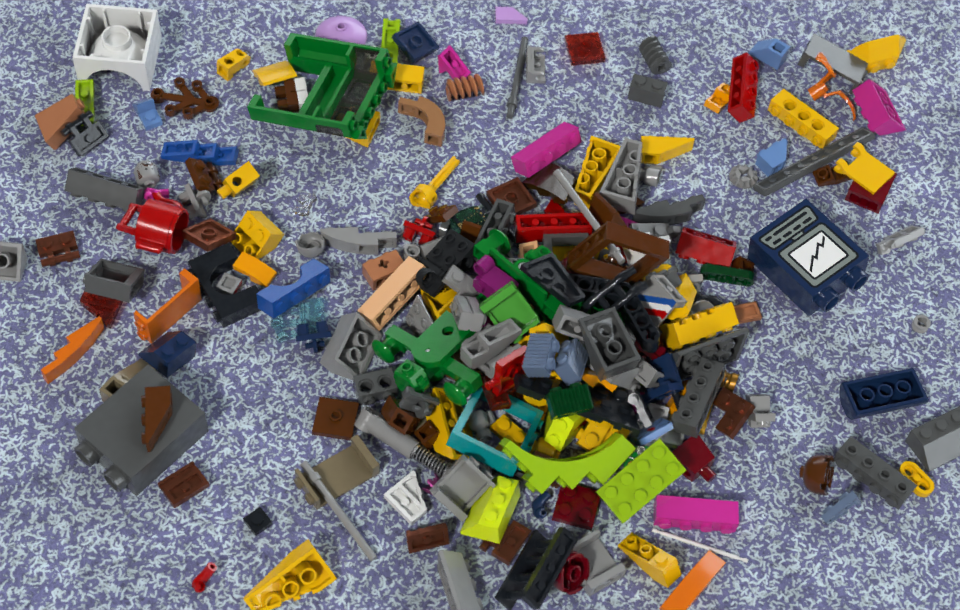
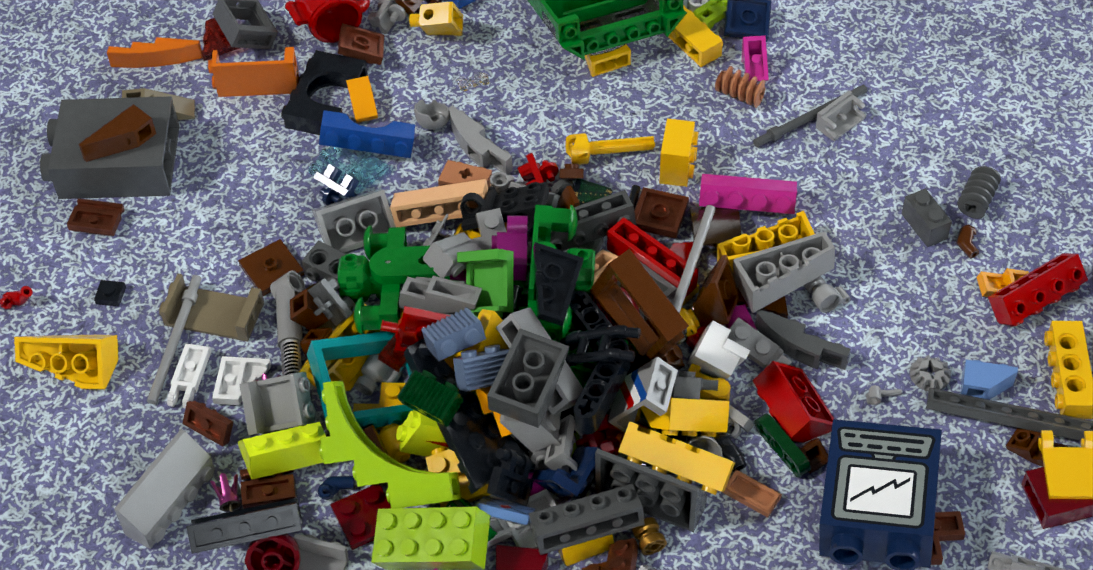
camera: 55 degrees right, 5 degrees down
(170, 352) = (214, 112): dark blue slope -> none
(228, 284) = (329, 95): light grey plate -> none
(257, 234) = (400, 74): yellow slope -> none
(375, 522) = (188, 373): none -> white hinge
(429, 114) = (675, 96): medium nougat arch -> none
(484, 154) = (678, 152): none -> yellow brick
(496, 565) = (227, 497): none -> flat silver piece
(509, 15) = (874, 57): lavender tile -> none
(584, 48) = (913, 137): clear red plate -> none
(660, 149) = (869, 280): yellow slope -> none
(676, 89) = (964, 241): none -> reddish brown arm
(734, 210) = (875, 393): none -> light grey hand

